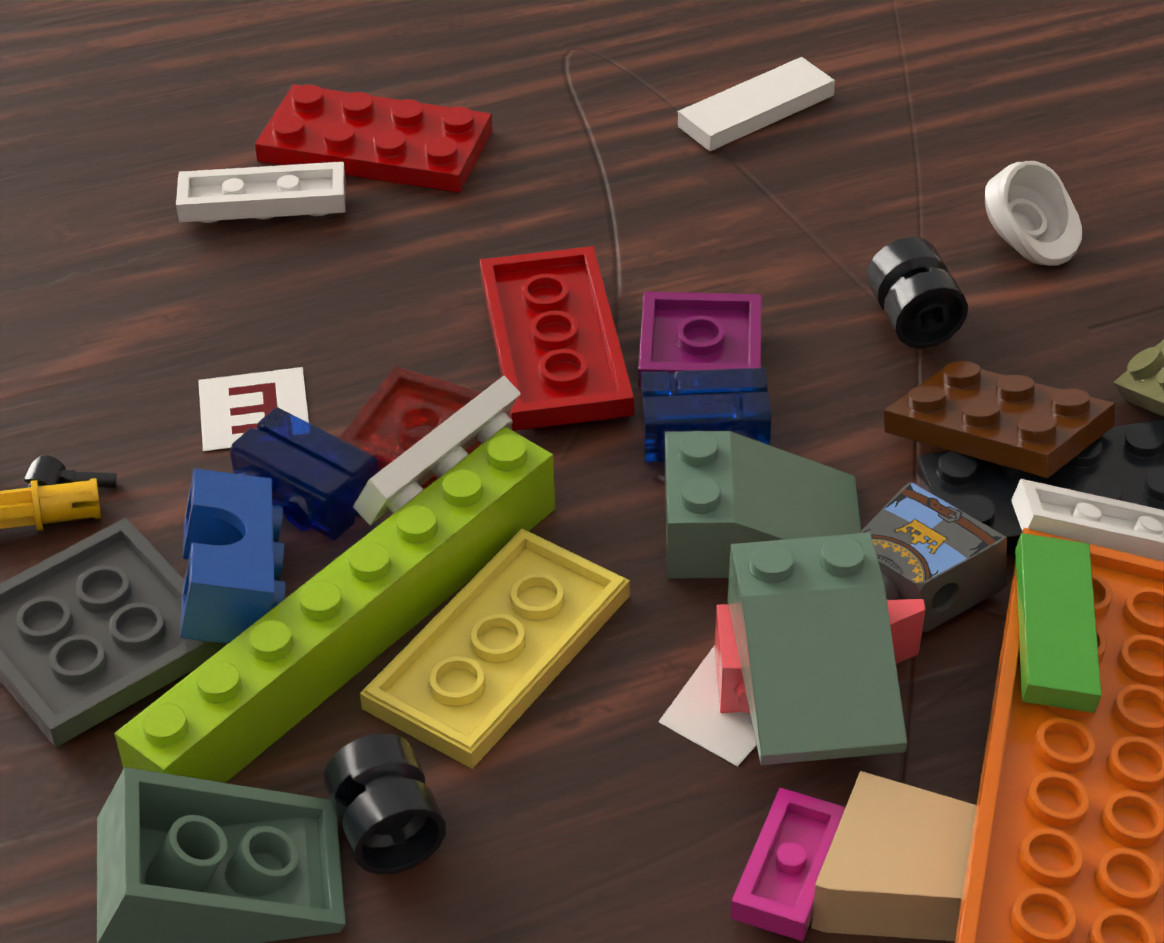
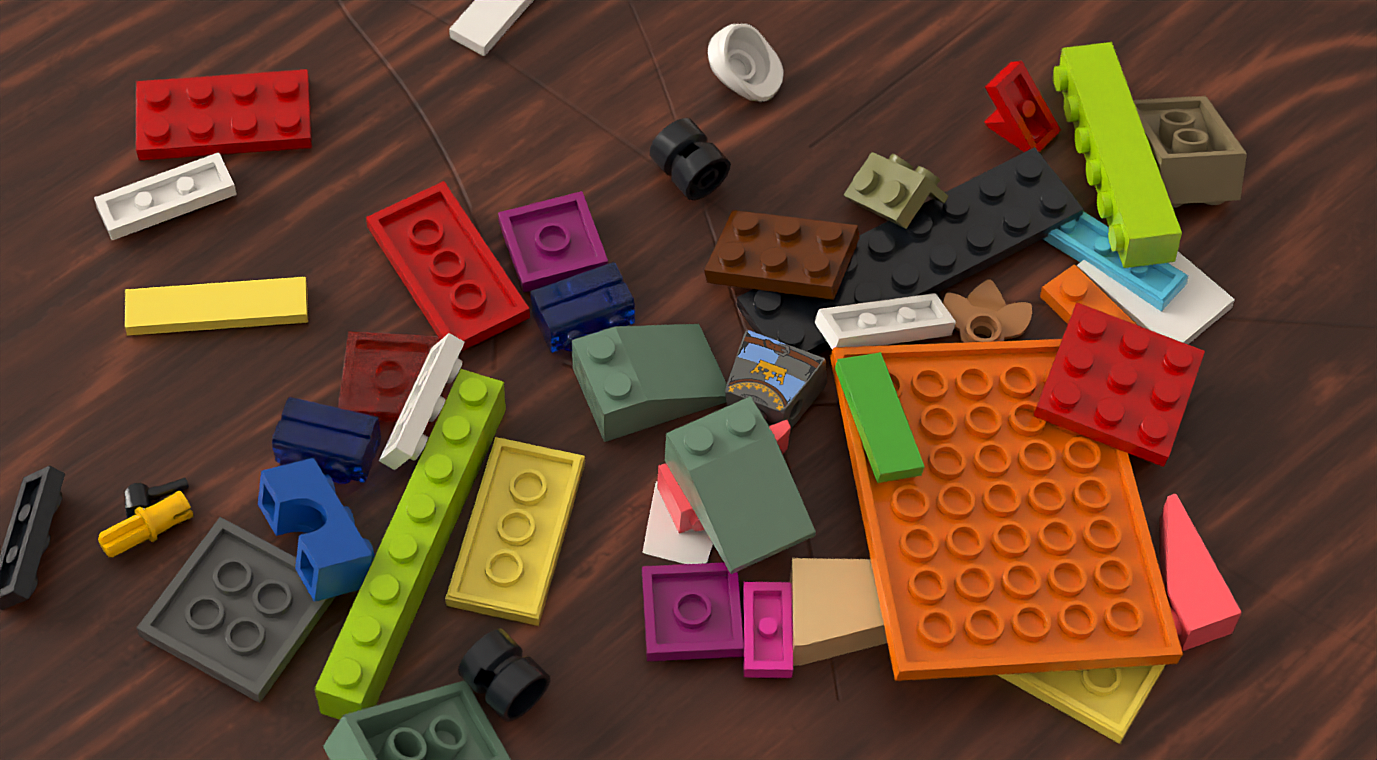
camera: 25 degrees left, 15 degrees up
(240, 401) = (251, 390): white sticker -> none
(259, 311) = (216, 306): none -> light yellow tile
(689, 808) = (691, 612): none -> magenta plate

